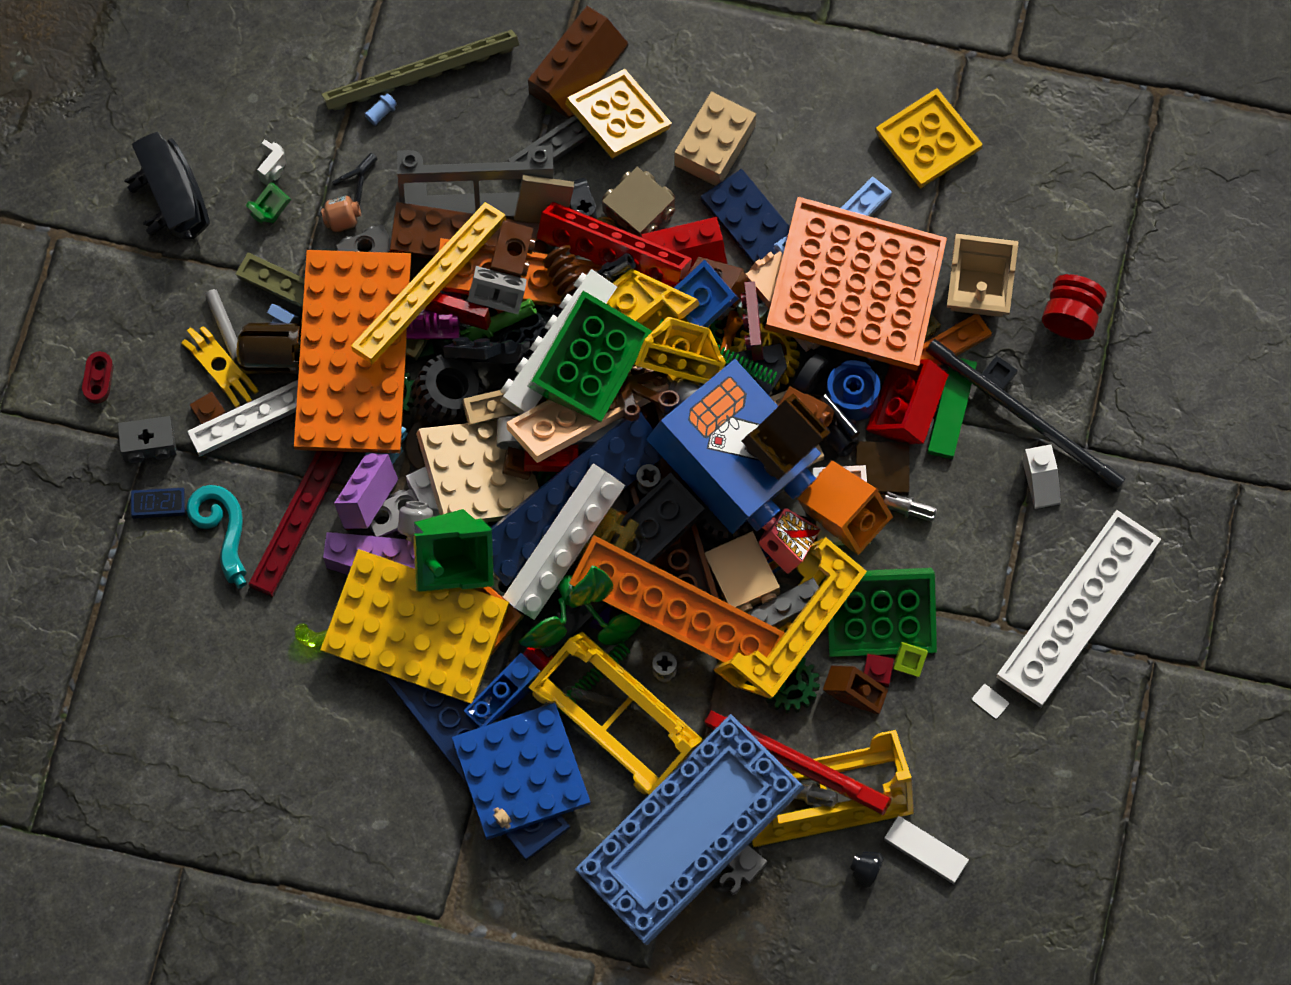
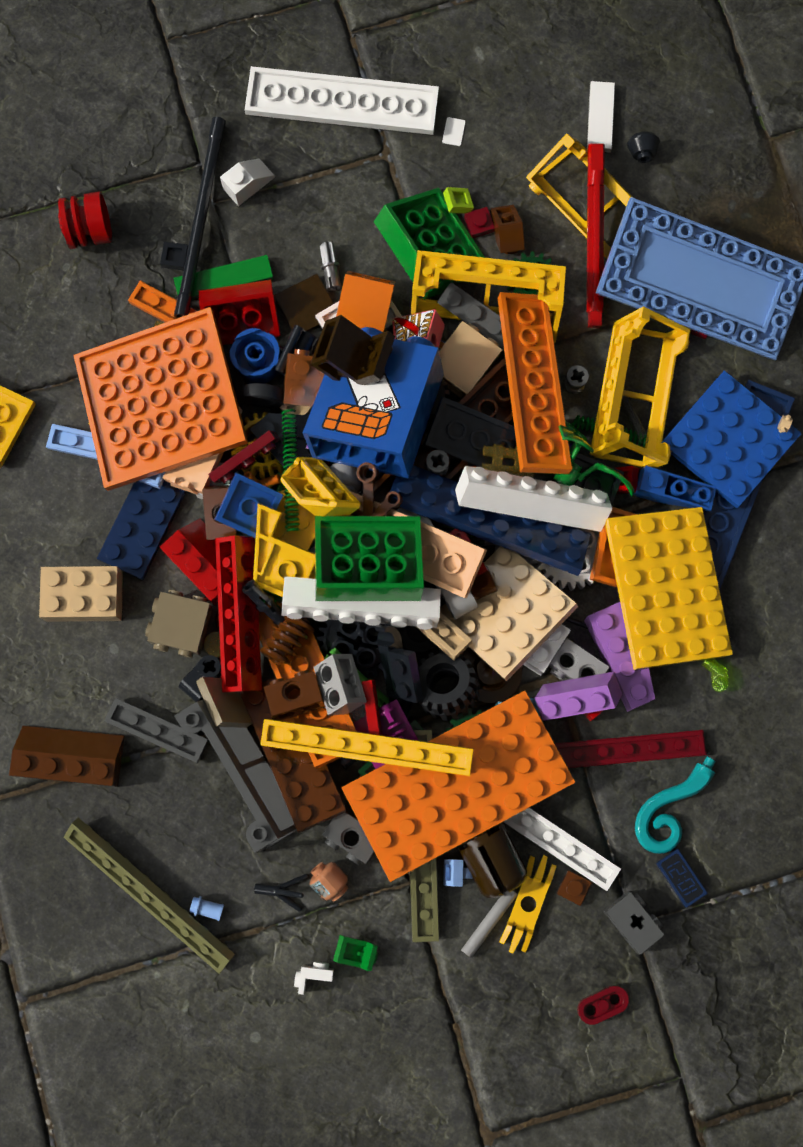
camera: 120 degrees left, 10 degrees up
(172, 186) = (390, 1053): black piece -> none
(411, 513) = (582, 637): light grey head -> none
(453, 552) = (600, 580): green piece -> none
(618, 113) = (101, 689): plate -> none
(813, 795) = (613, 212): flat silver axle -> none
(982, 275) = (100, 299): tan piece -> none

